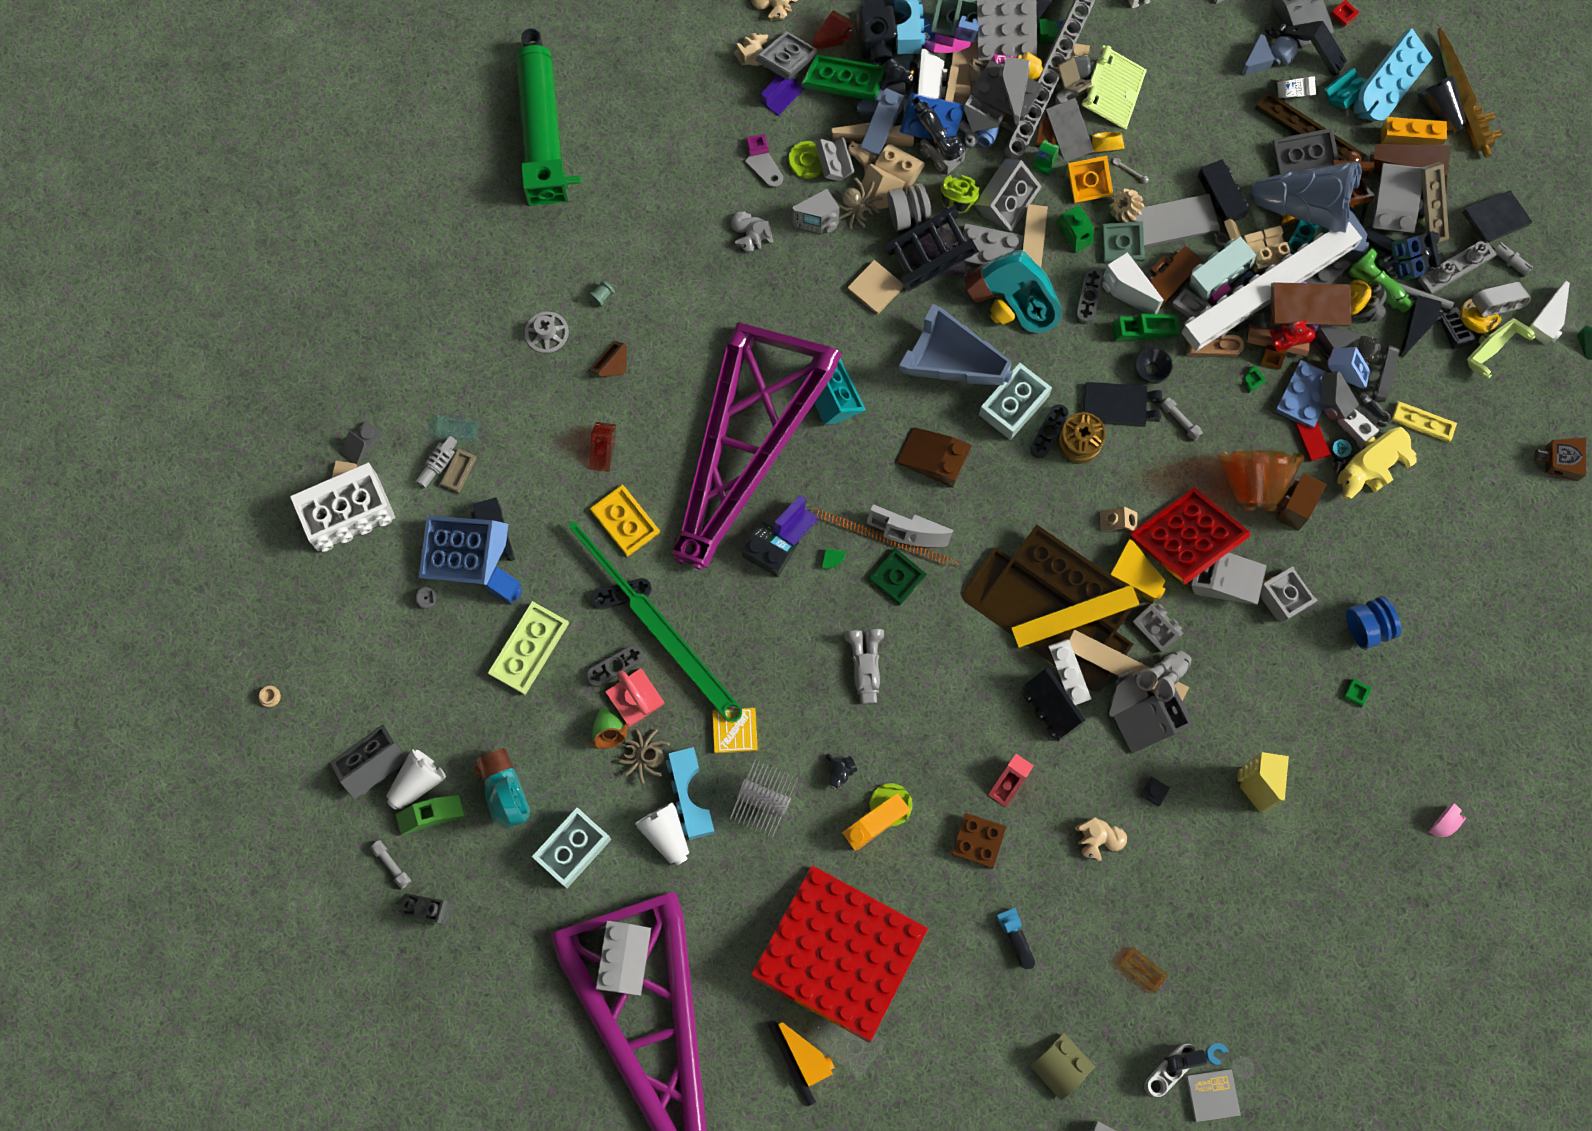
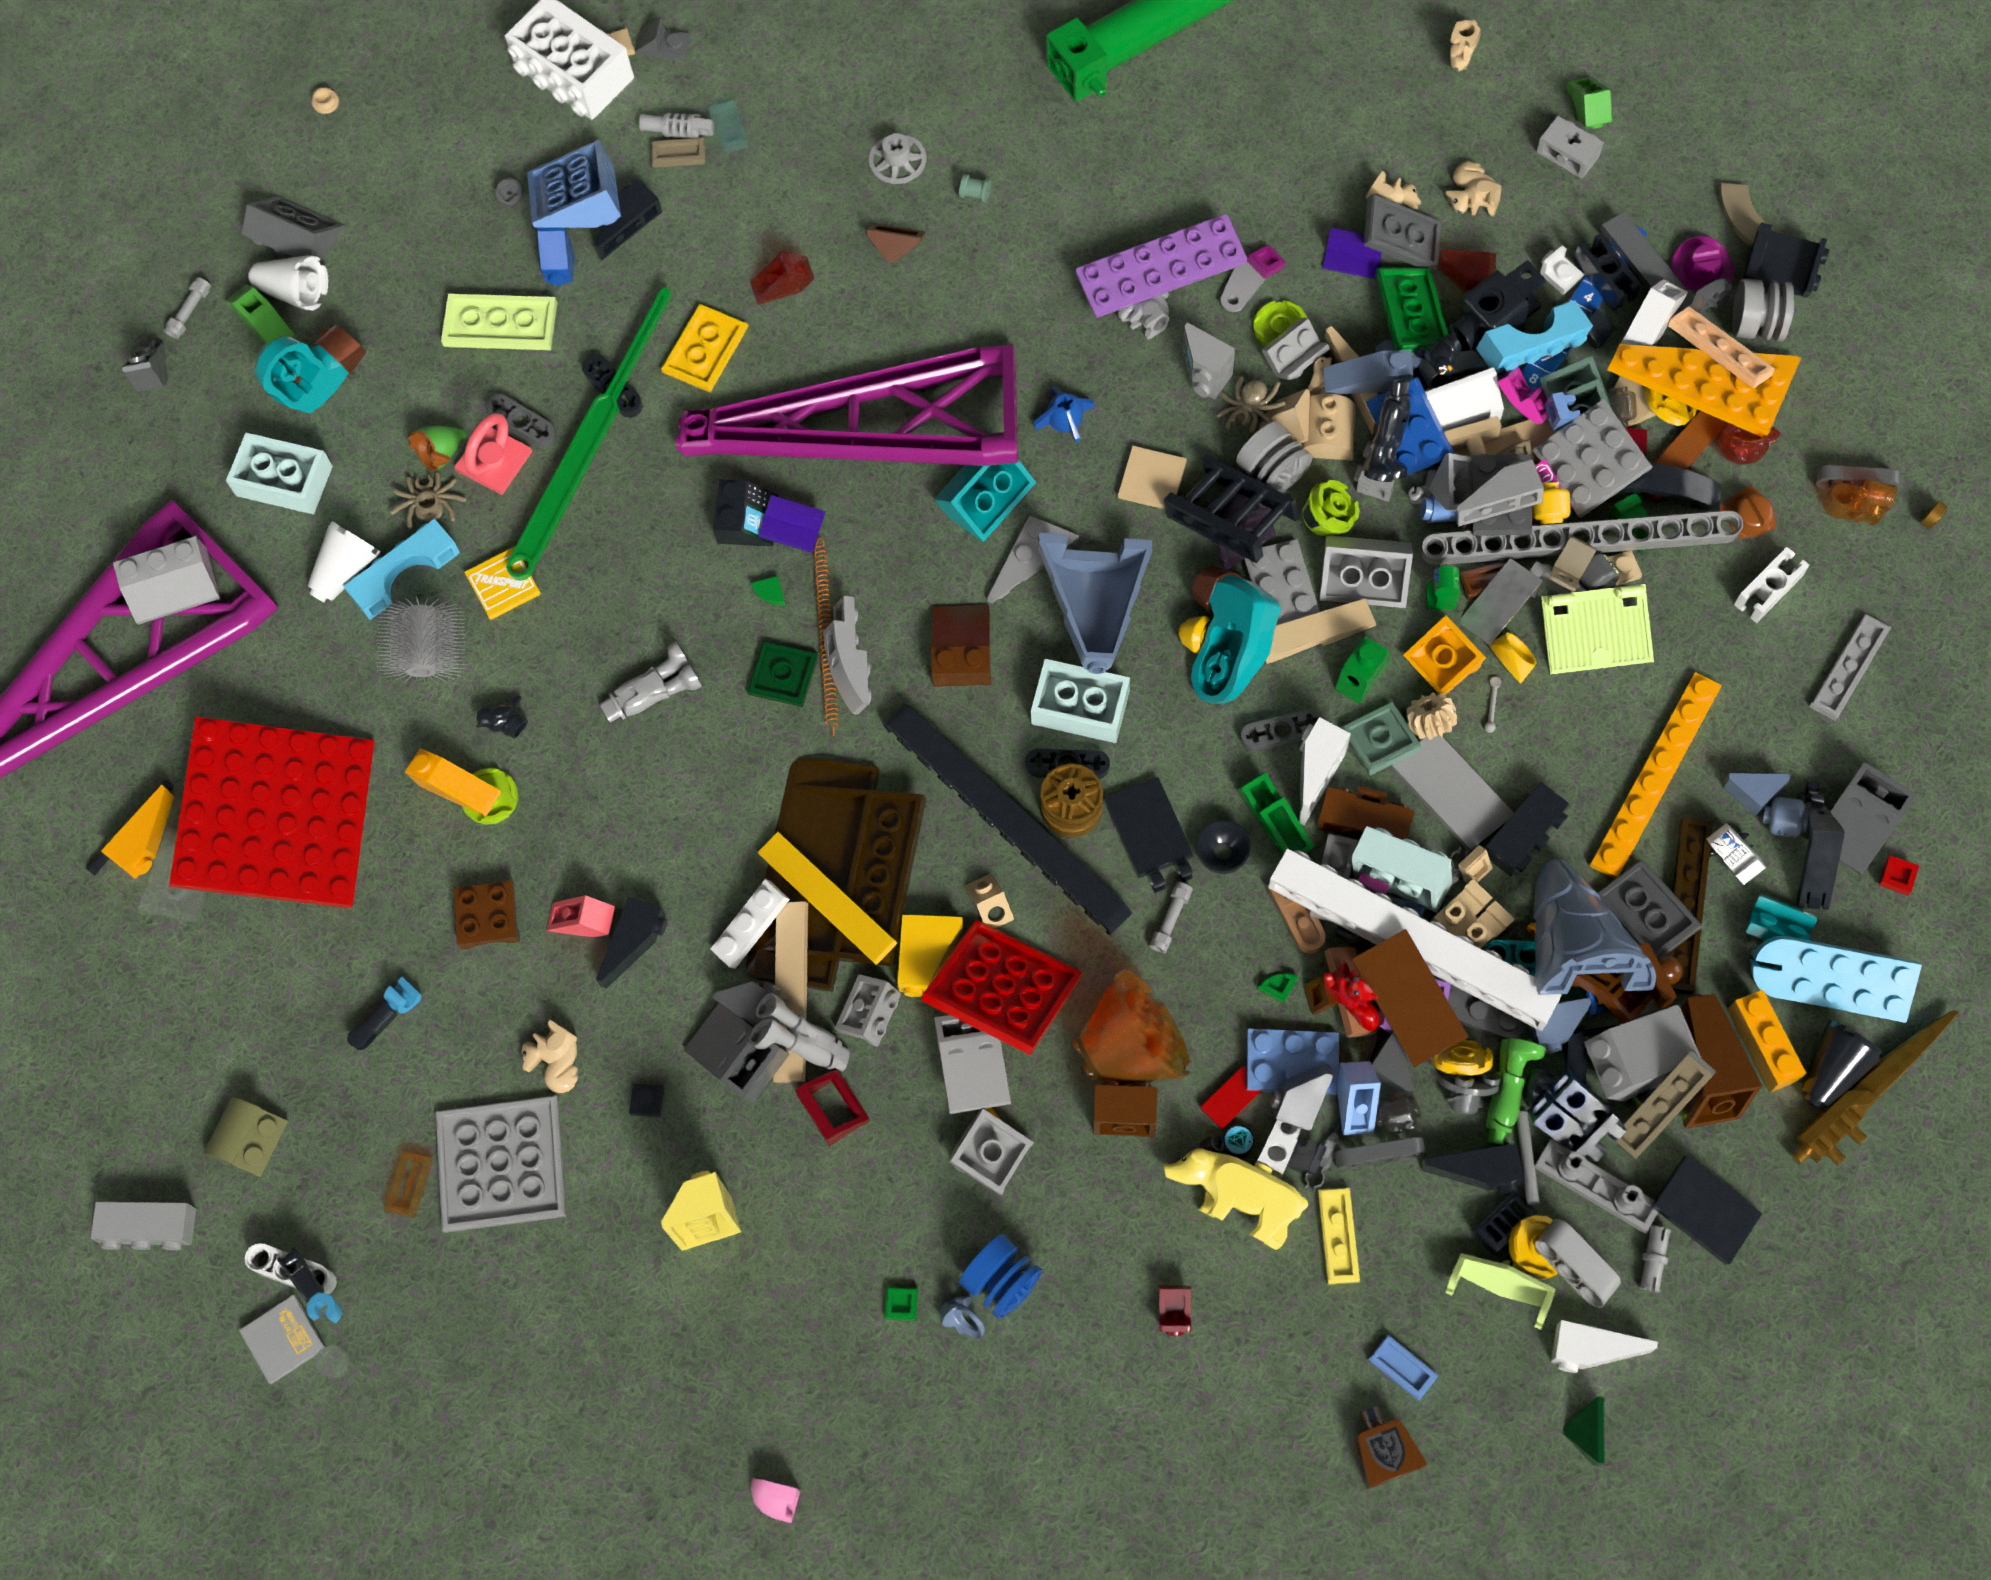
camera: 70 degrees right, 5 degrees down
(731, 206) = (1161, 265): none -> medium lavender bracket
(801, 316) = (1064, 413): none -> blue piece
(890, 384) = (1025, 557): none -> light grey wing
(1039, 748) = (633, 936): none -> black slope
(1053, 704) = (697, 922): black slope -> none
(1069, 483) = (1014, 823): none -> black beam
(1155, 903) = (500, 1164): none -> light grey tile
(1217, 687) = (831, 1135): none -> dark red tile
(1220, 106) = (1655, 776): none -> light orange plate
(1379, 663) = (952, 1316): none -> sand blue piece
(1431, 534) = (1175, 1309): none -> dark red bracket
(1517, 425) = (1403, 1367): none -> medium blue tile

